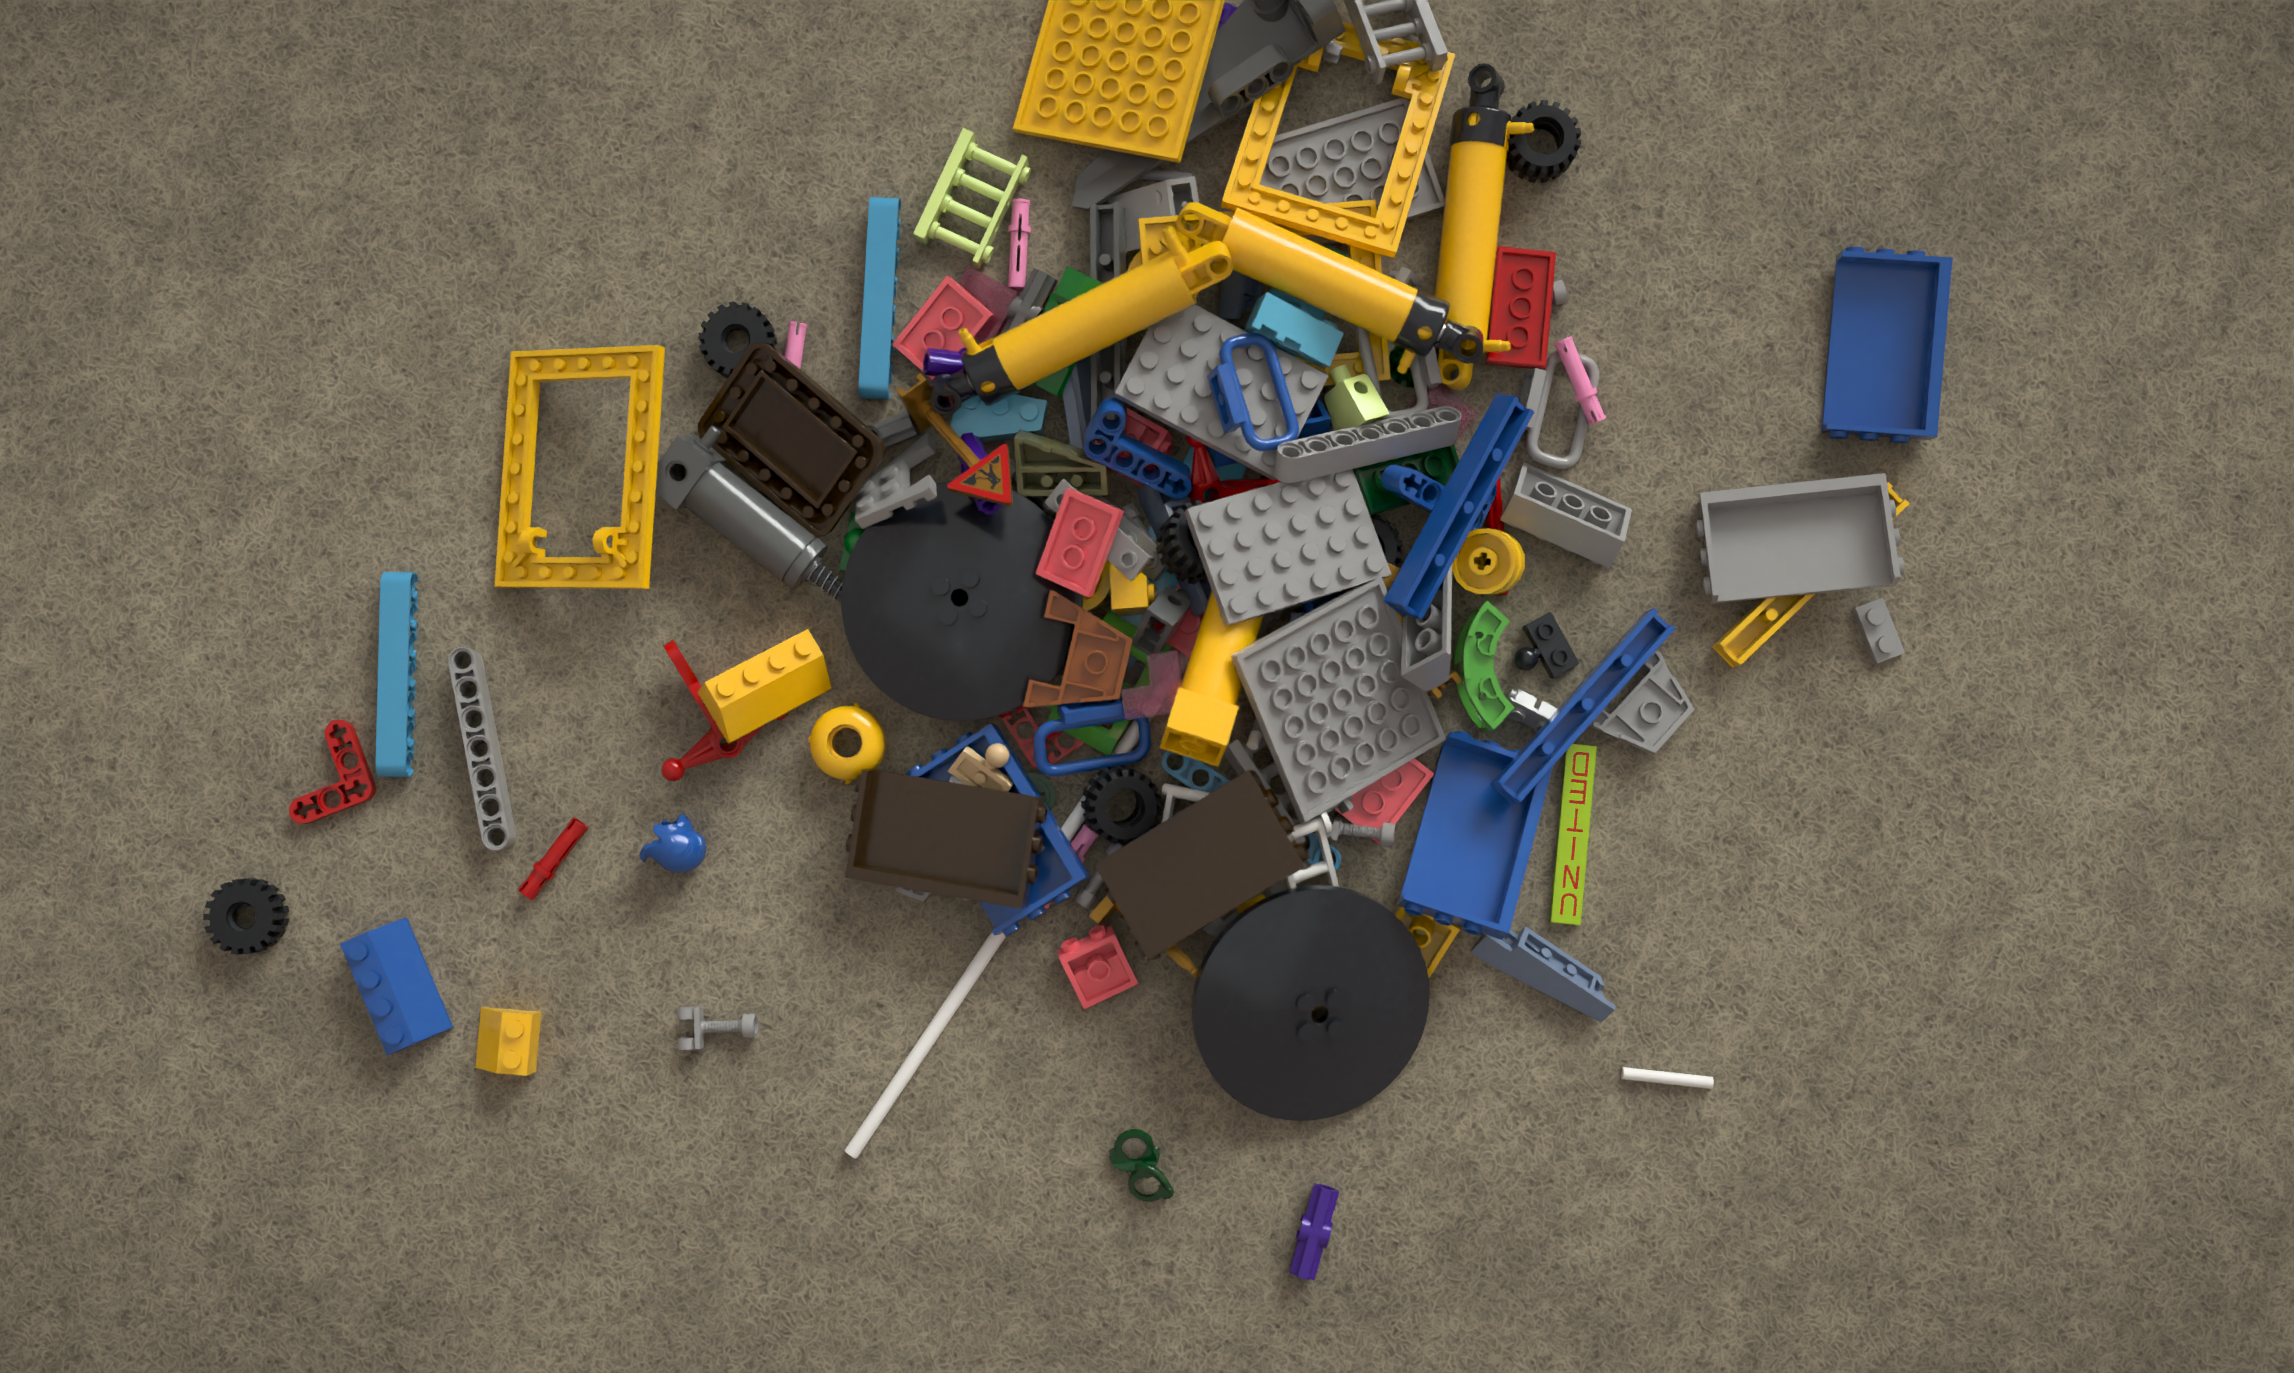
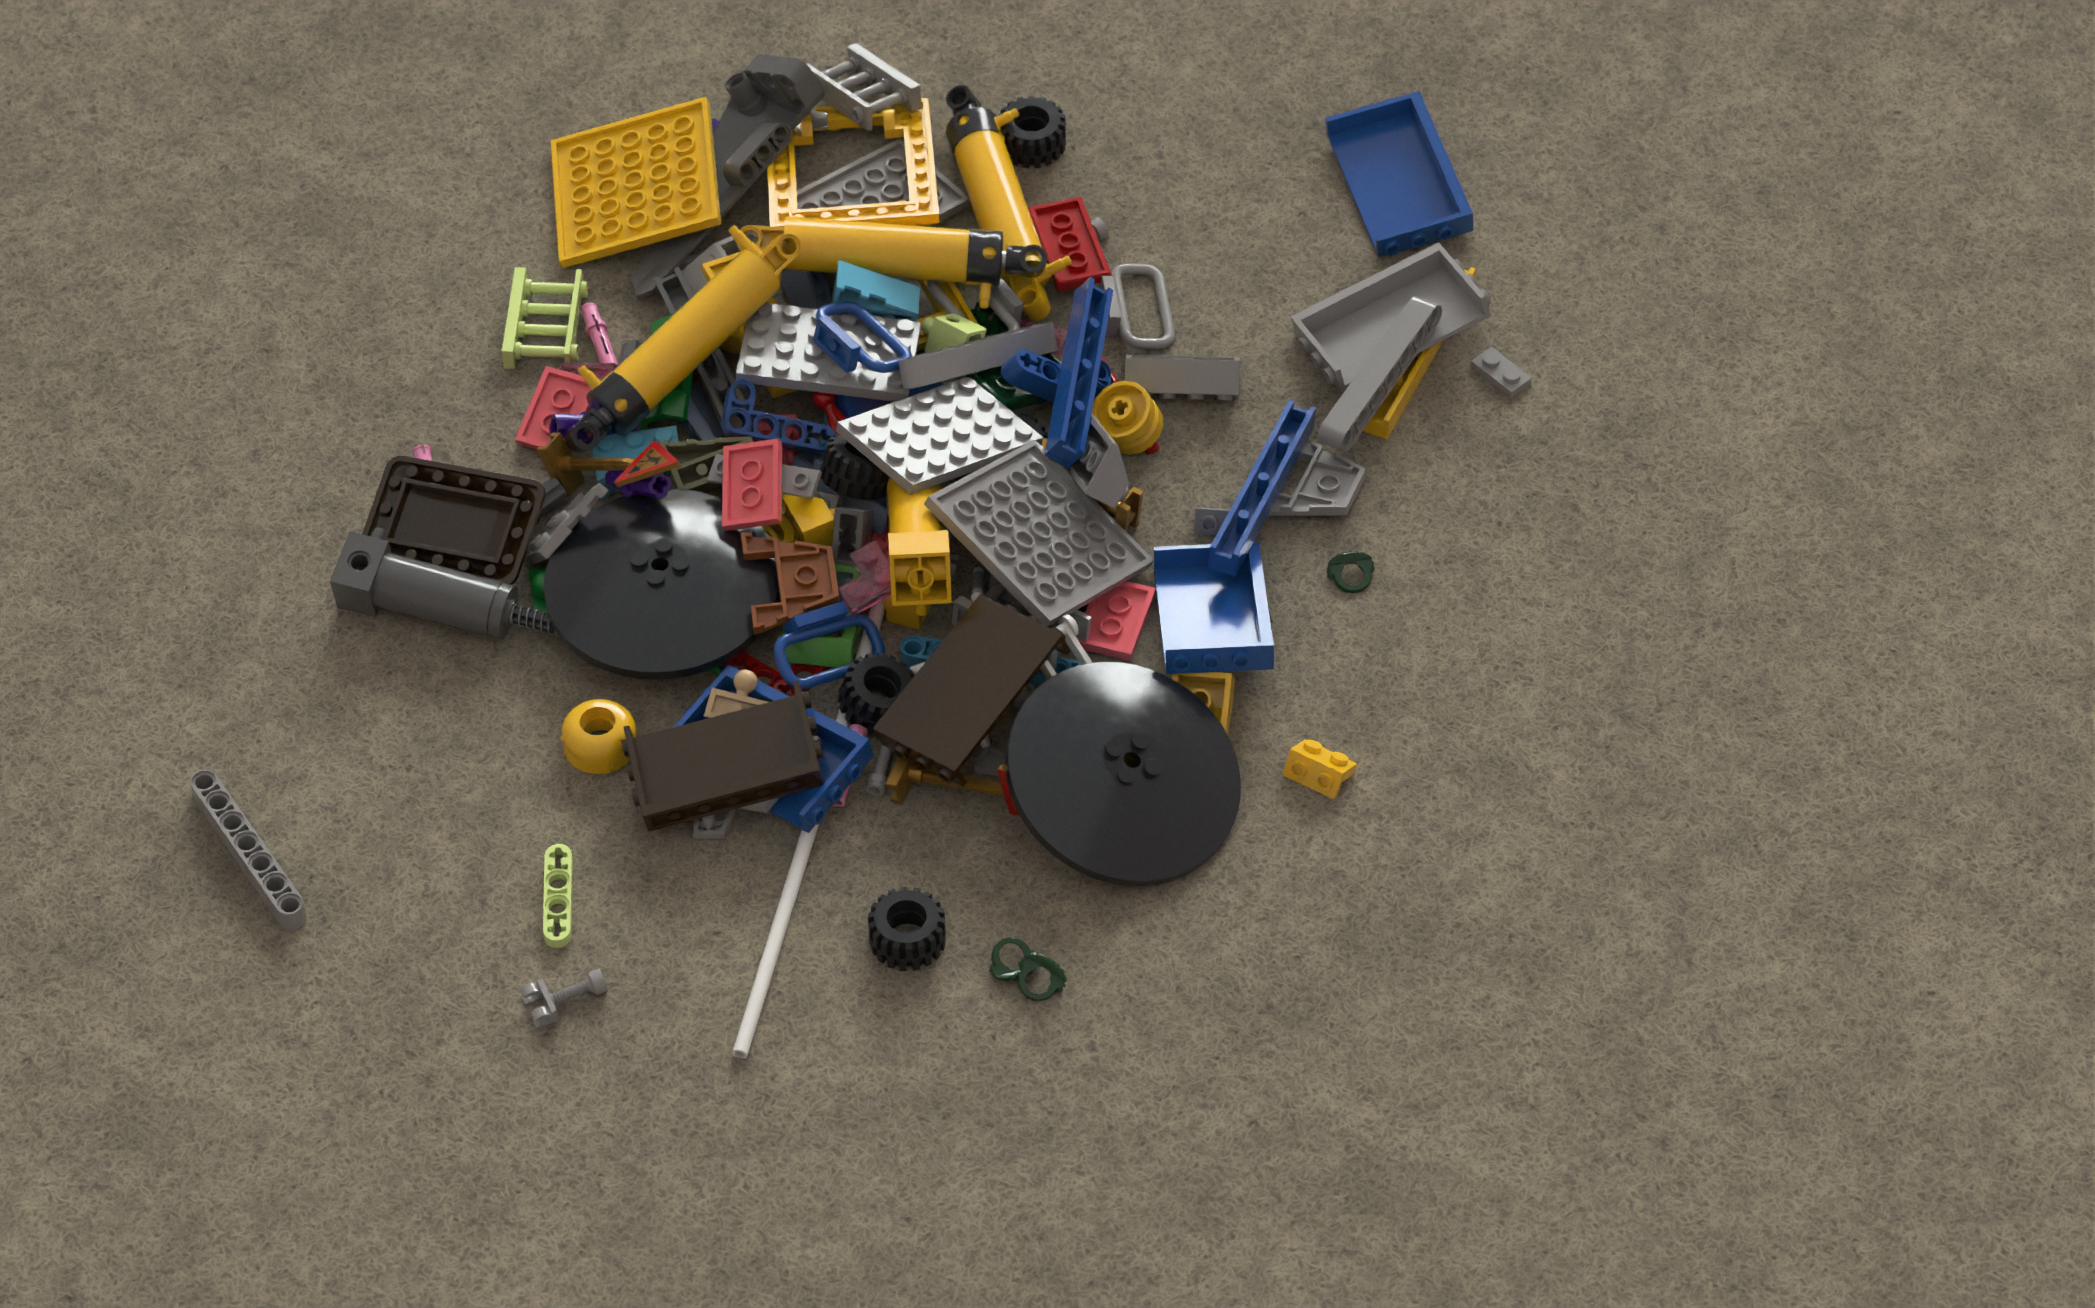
camera: 20 degrees left, 35 degrees down
(268, 920) = (65, 1070): black tyre -> none
(348, 778) = (122, 918): red beam -> none
(395, 674) = (142, 821): dark azure beam -> none
(396, 985) = (233, 1062): blue slope -> none
(508, 1041) = (361, 1068): yellow slope -> none
(550, 862) = (346, 923): red pin -> none
(629, 559) = (225, 685): yellow plate -> none
(678, 846) = (469, 859): blue hair -> none
(709, 746) = (460, 748): red piece -> none
(722, 324) = (353, 468): black tyre -> none
(744, 907) = (557, 896): none -> yellowish green beam
(766, 686) = (504, 702): yellow slope -> none
(879, 290) = (488, 407): dark azure beam -> none
(1048, 1111) = (911, 947): none -> black tyre
(1096, 965) = (911, 826): coral plate -> none
(1314, 1231) = (1214, 964): dark purple piece -> none
(1384, 834) = (1129, 638): light grey bar -> none
(1475, 667) = (1167, 500): bright green window -> none
(1503, 1043) = (1318, 767): none -> yellow bracket
(1547, 970) = (1328, 701): sand blue wedge -> none
(1548, 645) = (1212, 470): black plate -> none
(1573, 834) = (1305, 598): lime tile -> none
(1580, 381) = (1155, 283): bright pink pin -> none
(1617, 813) = (1361, 559): none -> dark green piece
(1667, 1078) = (1484, 747): white bar -> none
(1756, 613) = (1380, 373): none -> light grey beam

